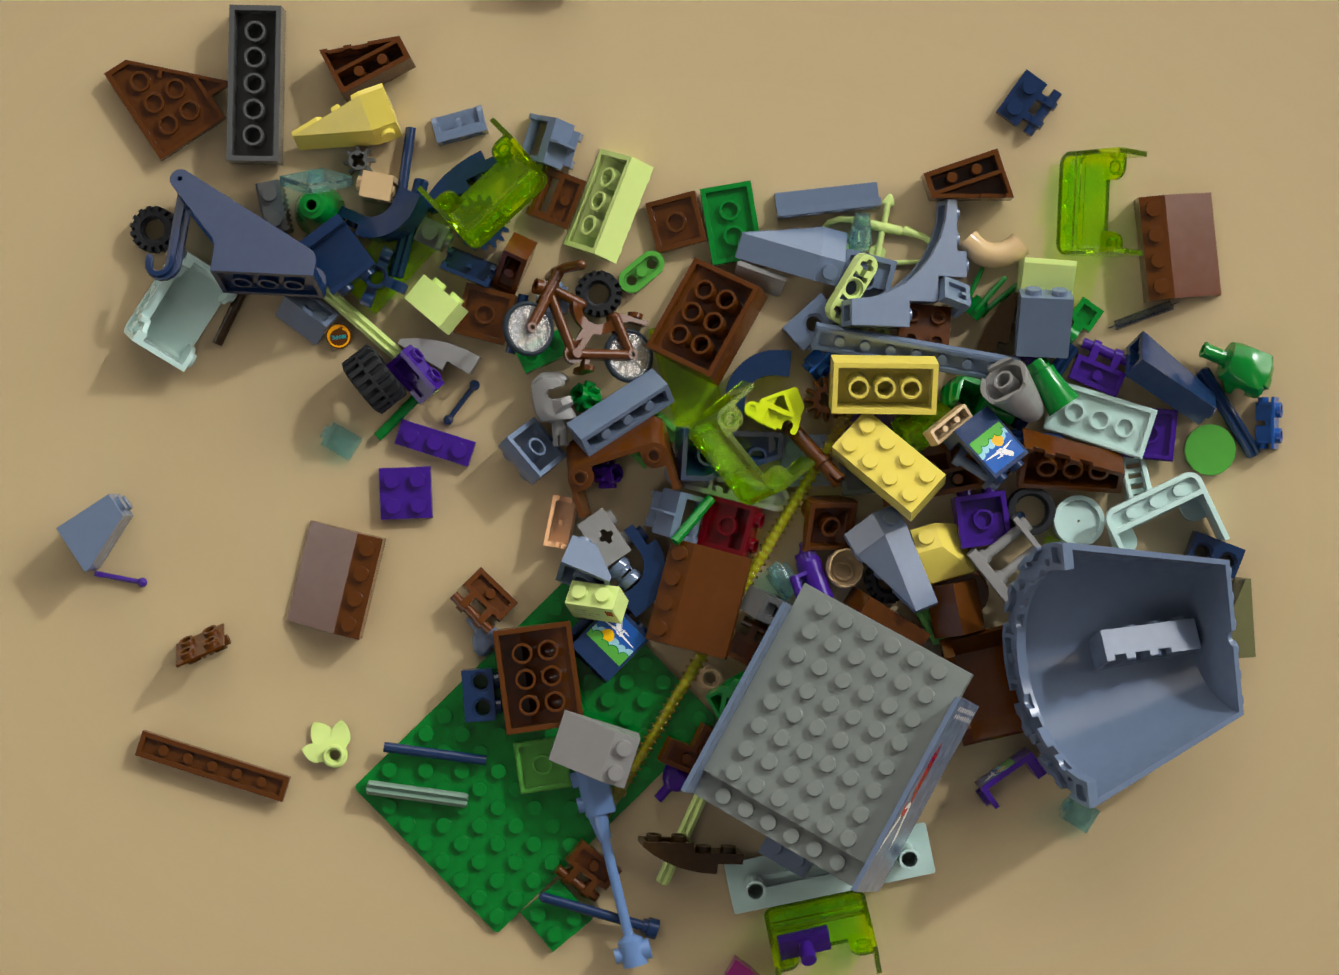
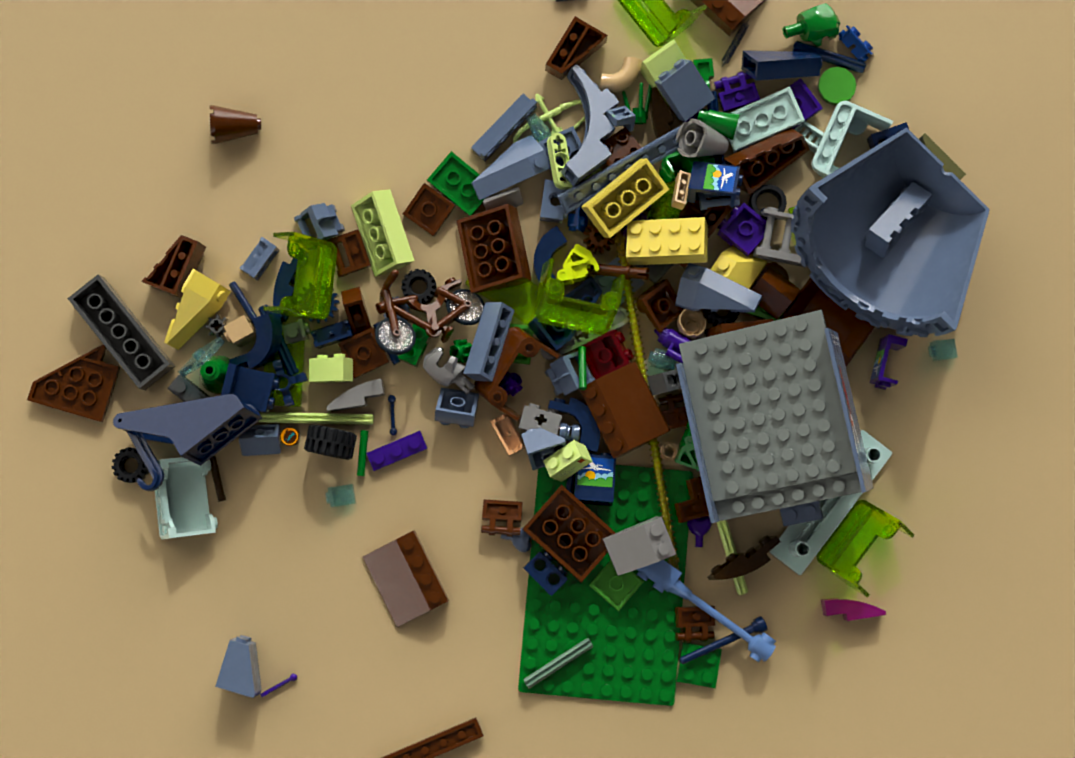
camera: 45 degrees left, 5 degrees down
(193, 648) = (356, 689): reddish brown hinge -> none
(325, 741) = (479, 676): yellowish green plate -> none
(406, 492) = (404, 494): dark purple plate -> none
(415, 373) = (352, 419): dark purple bracket -> none
(435, 753) = (549, 630): dark blue bar -> none
(641, 271) = (432, 254): bright green plate -> none
(804, 944) = (855, 557): dark purple tile -> none
(1088, 514) = (796, 182): light aqua piece -> none

